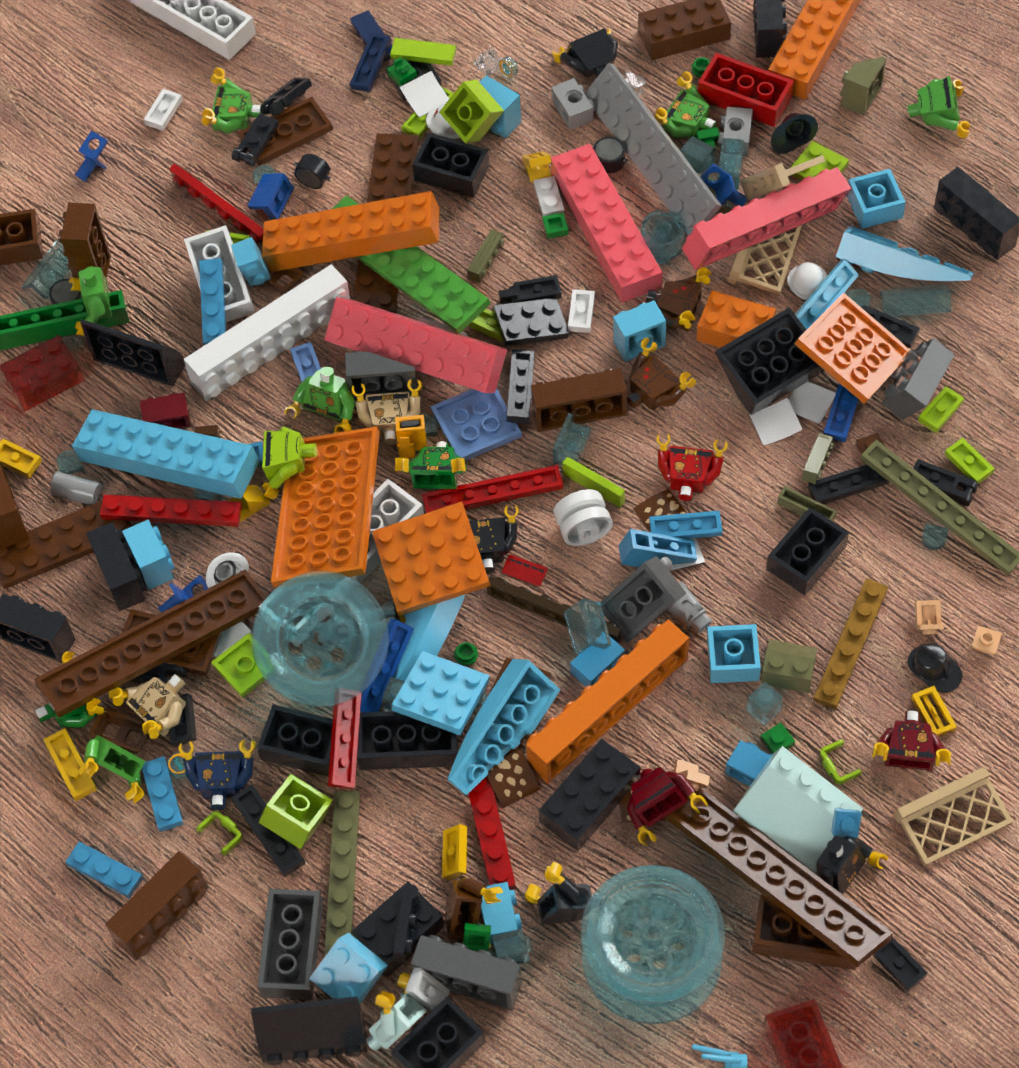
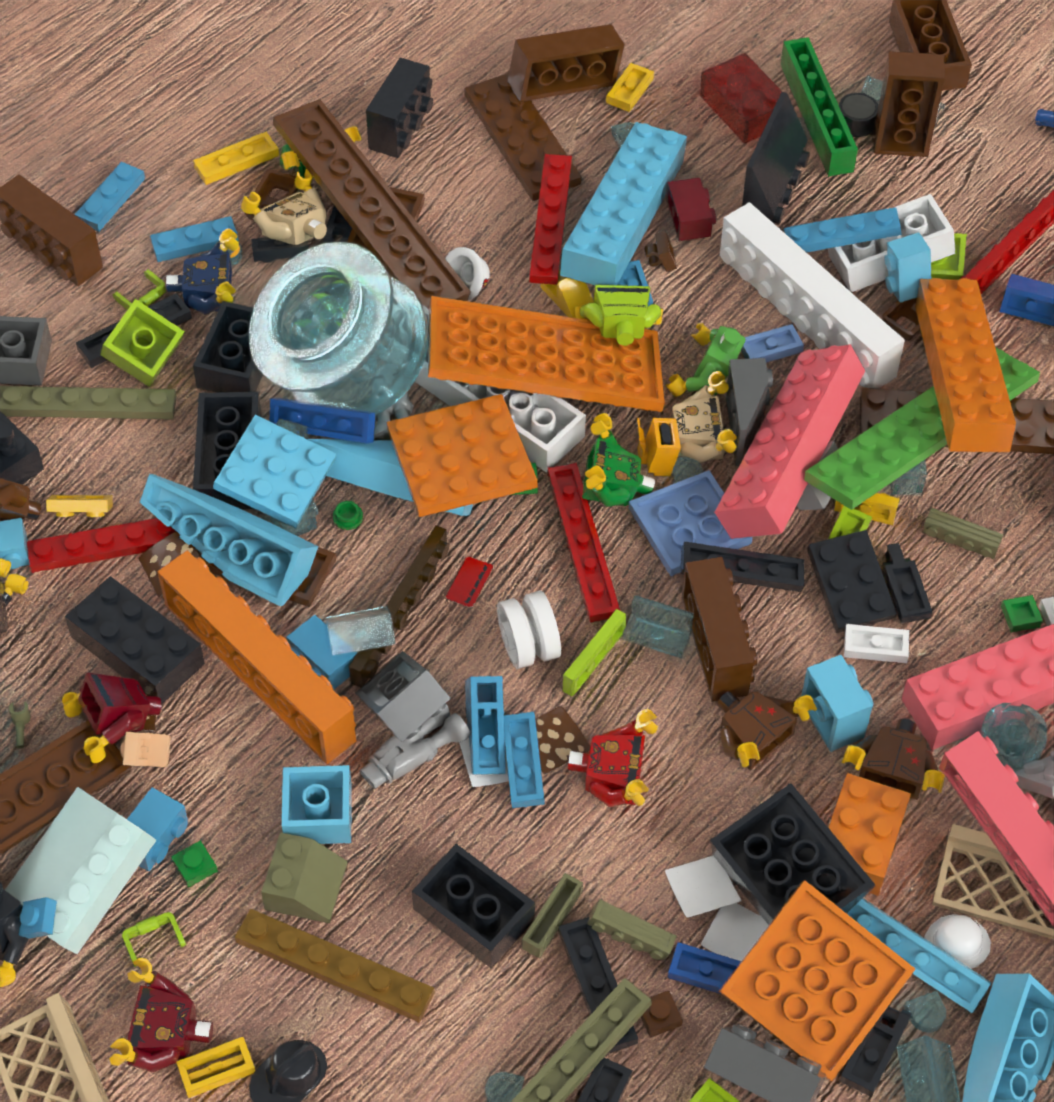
camera: 85 degrees right, 5 degrees down
(75, 488) = (592, 141): light grey brick -> none
(94, 295) = (838, 113): bright green torso -> none
(116, 760) = (226, 181): bright green torso -> none
(117, 566) = (474, 172): black brick -> none
(149, 554) = (489, 199): medium azure brick -> none
(182, 595) = (439, 233): blue bracket -> none
(344, 744) = (214, 377): plate -> none
(495, 538) = (506, 531): black torso -> none
(764, 703) = (242, 843): clear light blue brick -> none
(928, 616) = (362, 1067): light nougat bracket -> none

